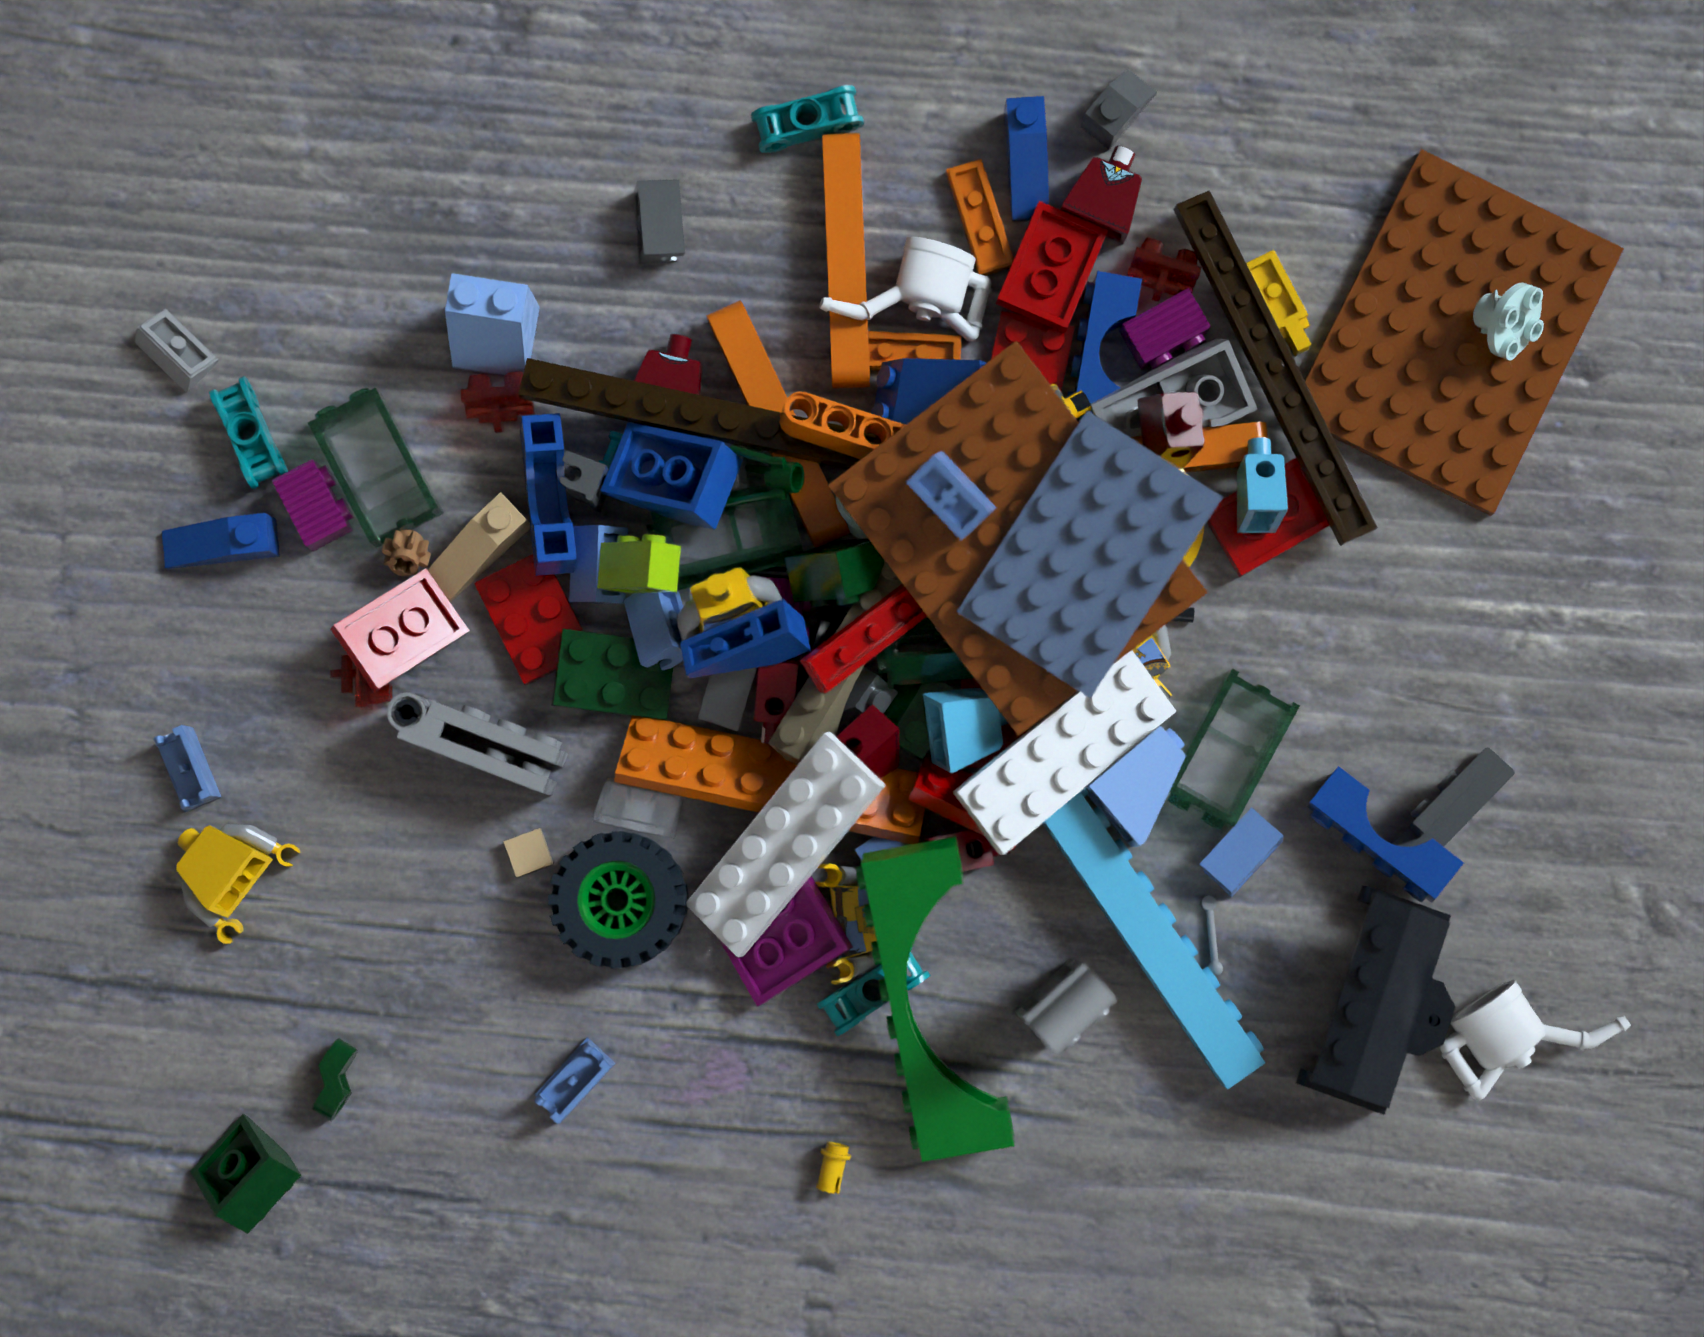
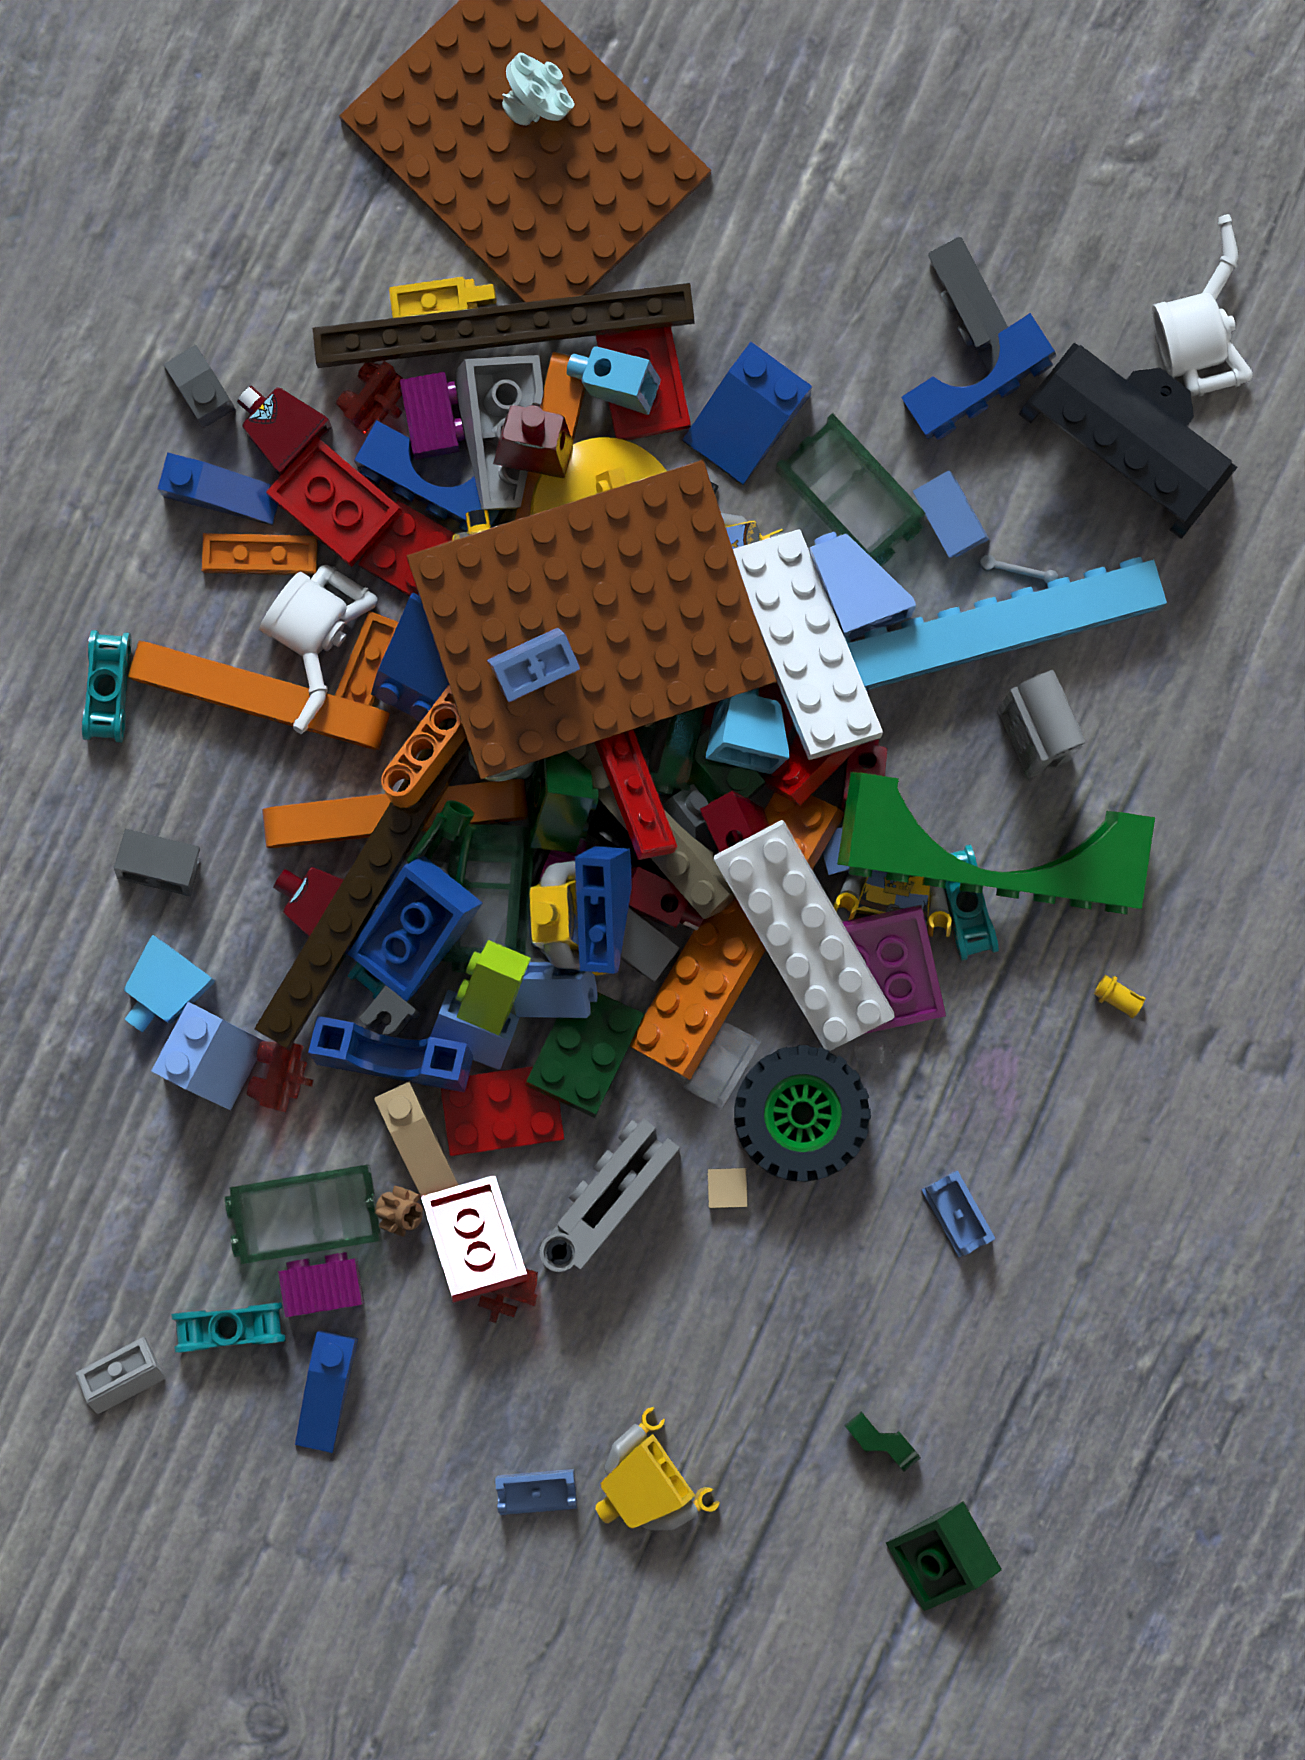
camera: 70 degrees left, 0 degrees up
(548, 264) = (163, 984): none -> medium azure torso
(1089, 554) = (631, 556): sand blue plate -> none
(1272, 626) = (747, 413): none -> blue slope

